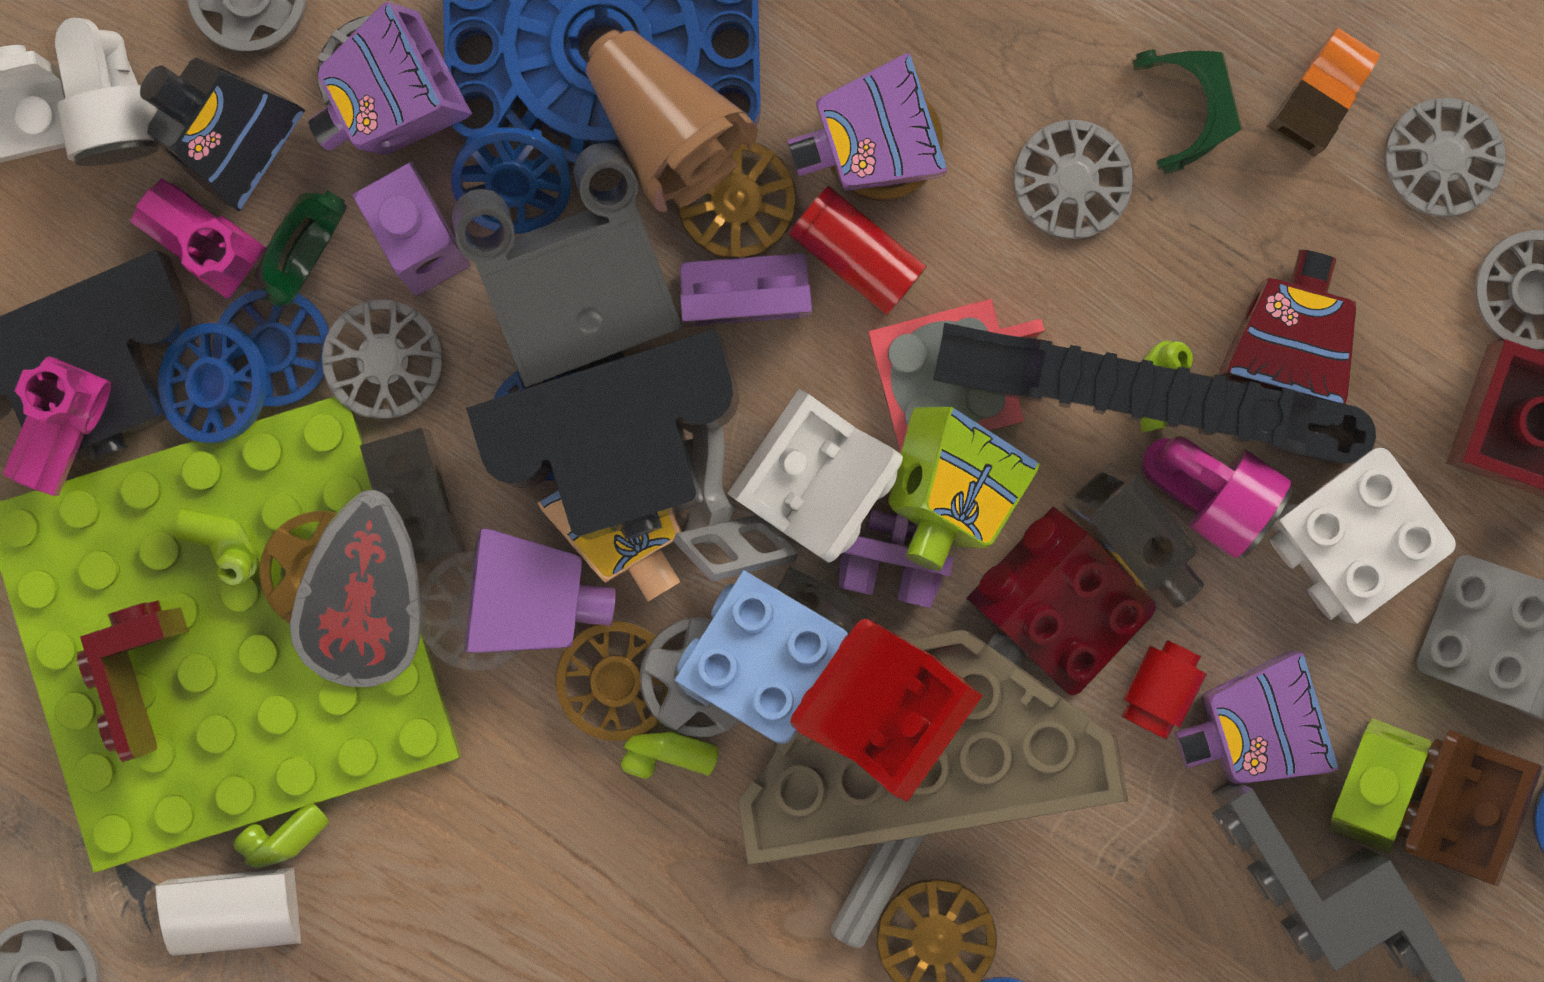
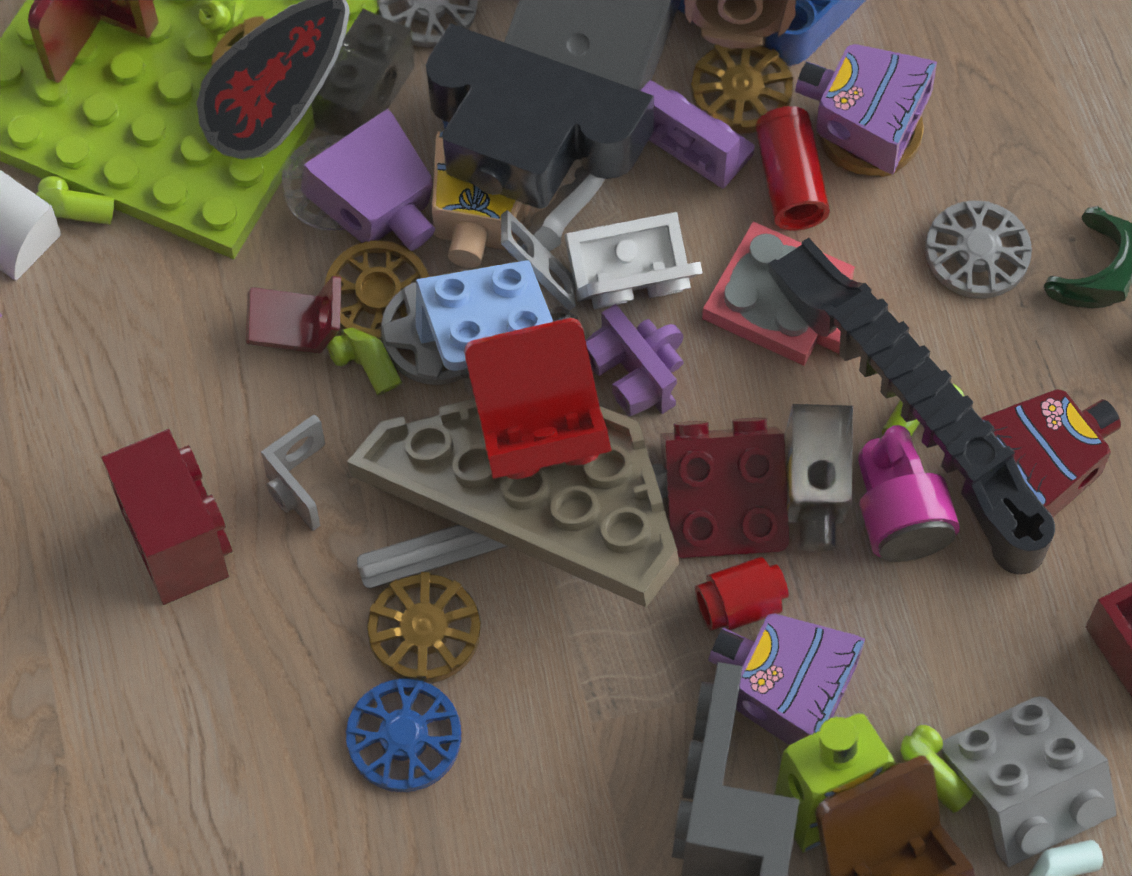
camera: 40 degrees right, 25 degrees down
(576, 776) = (294, 319): none -> bracket
(716, 931) = (282, 485): none -> light grey bracket
(956, 484) = (722, 335): lime torso -> none
(1362, 537) = (977, 602): white bracket -> none
(1432, 703) = (950, 787): none -> lime arm

